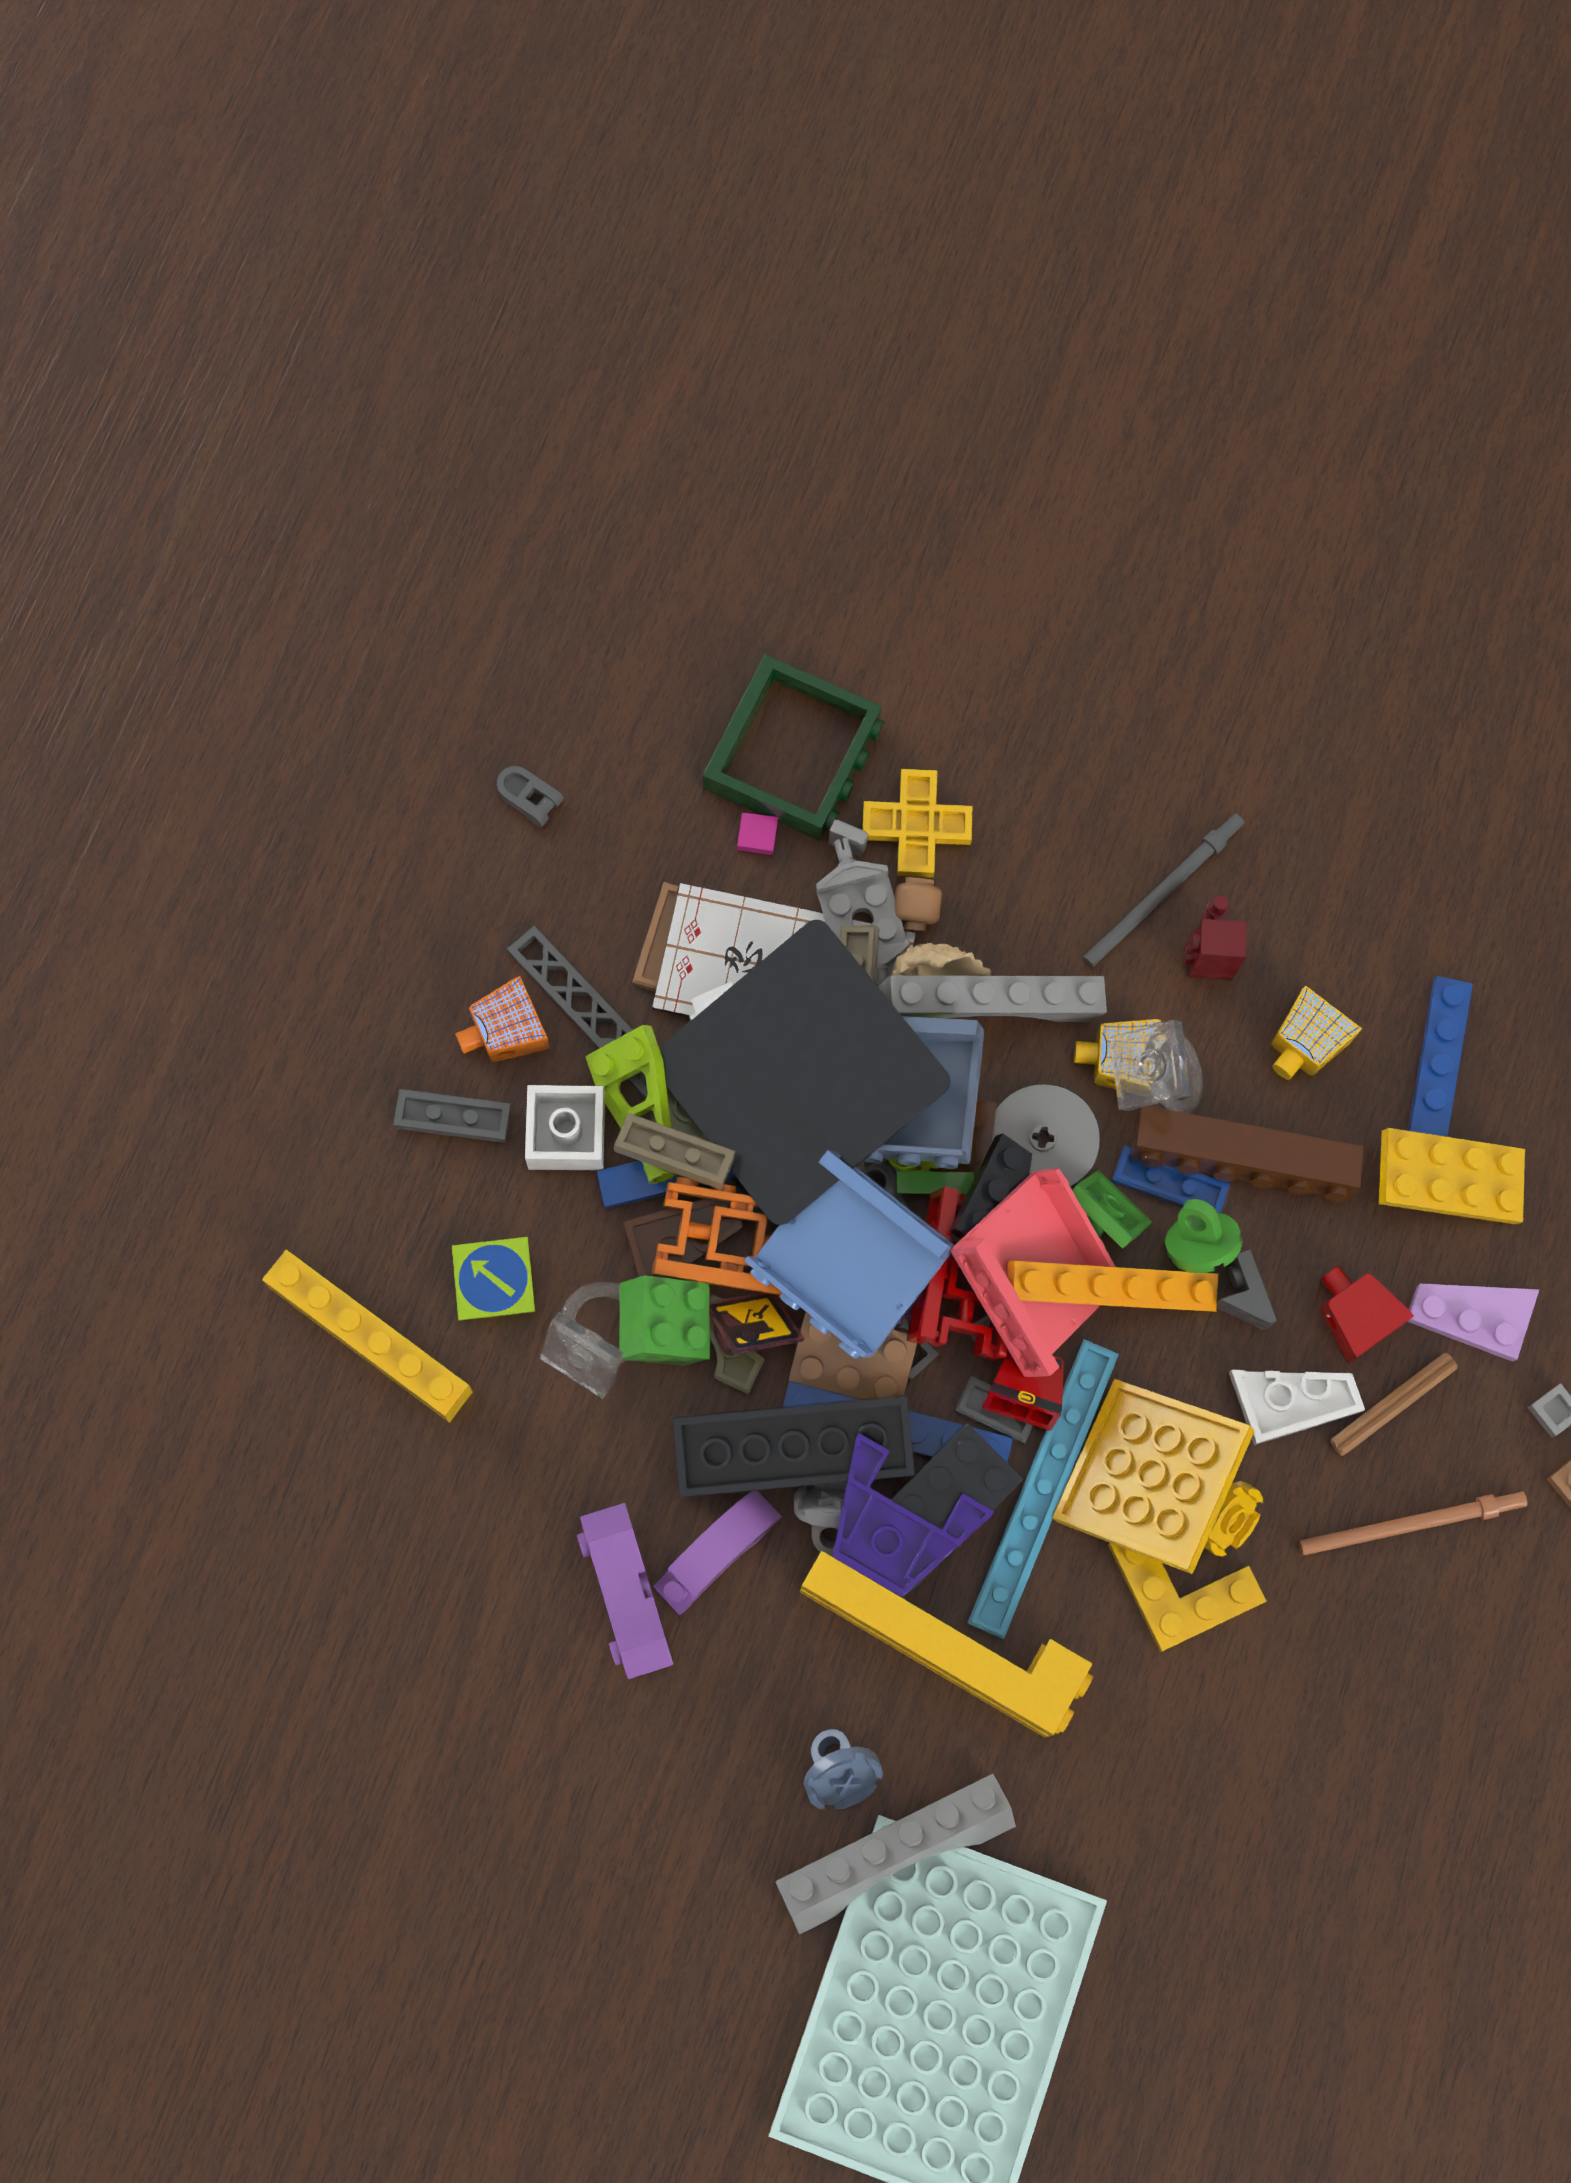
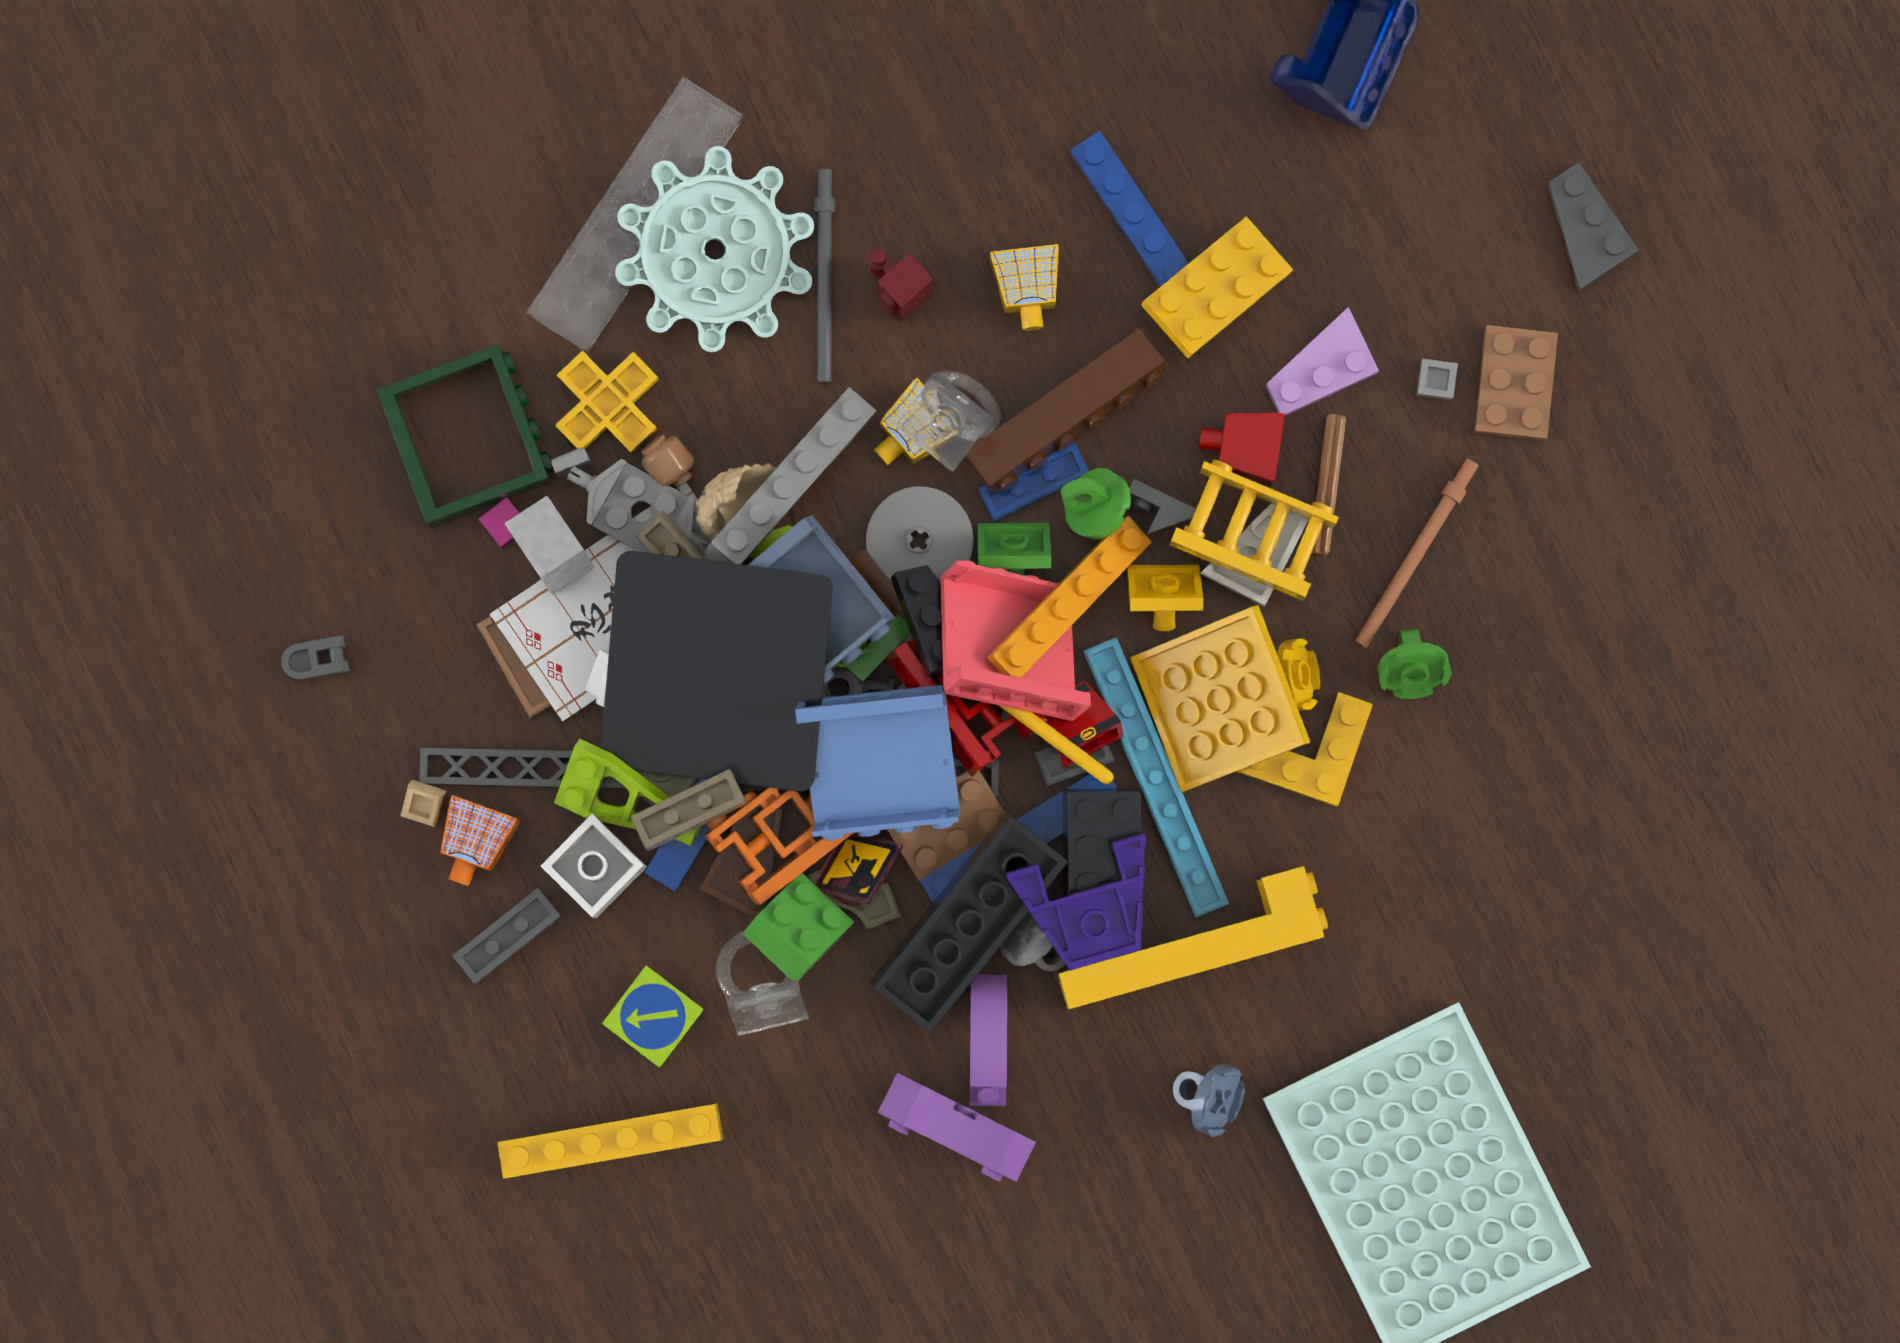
camera: 40 degrees left, 10 degrees up
(494, 965) = (423, 803): none -> tan tile
(772, 875) = (549, 545): none -> flat silver piece
(953, 1822) = (1279, 1161): light grey arch -> none
(999, 1383) = (1062, 744): none -> yellow piece
(1070, 719) = (584, 286): none -> clear plate
(1111, 753) = (724, 210): none -> light aqua plate
(1190, 1355) = (1165, 591): none -> yellow tile
(1281, 1407) = (1225, 551): none -> yellow fence
(1327, 1605) = (1413, 667): none -> bright green tile

